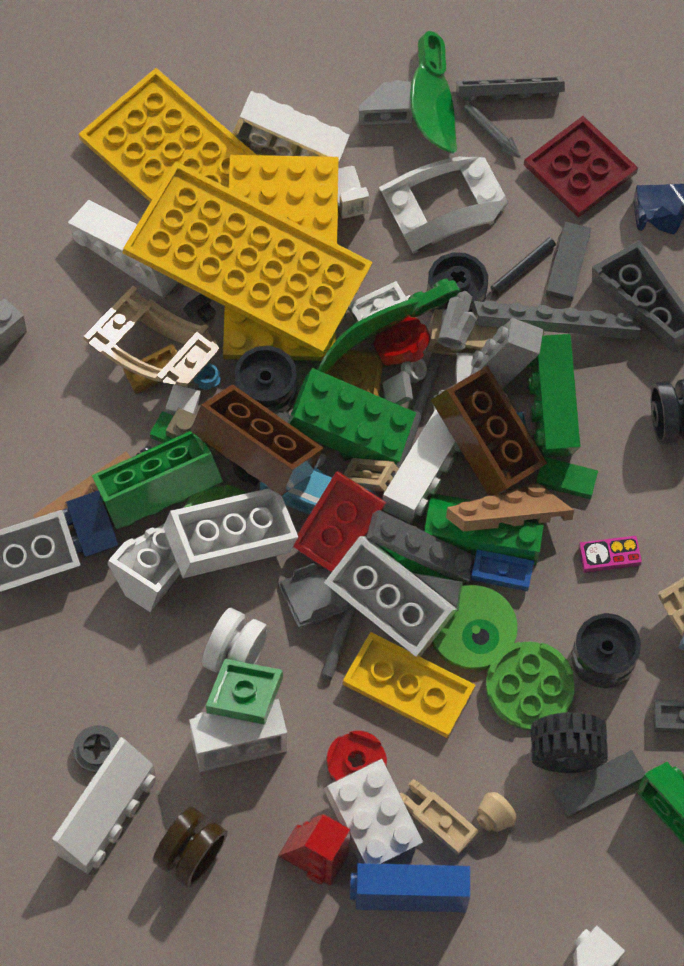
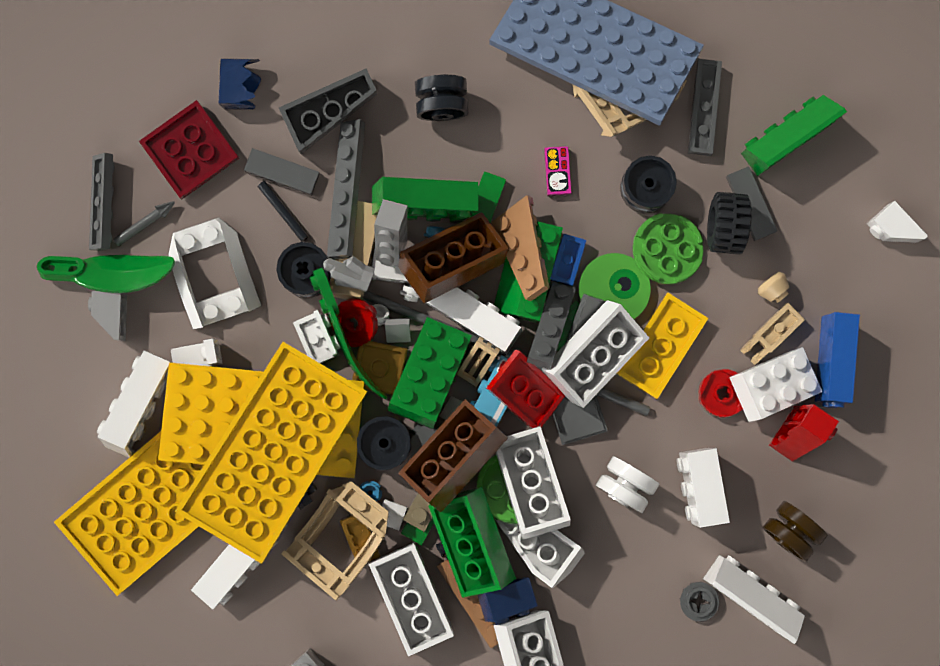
camera: 85 degrees left, 20 degrees up
(88, 422) = (411, 598): none -> white brick
(244, 691) = (682, 481): plate -> none

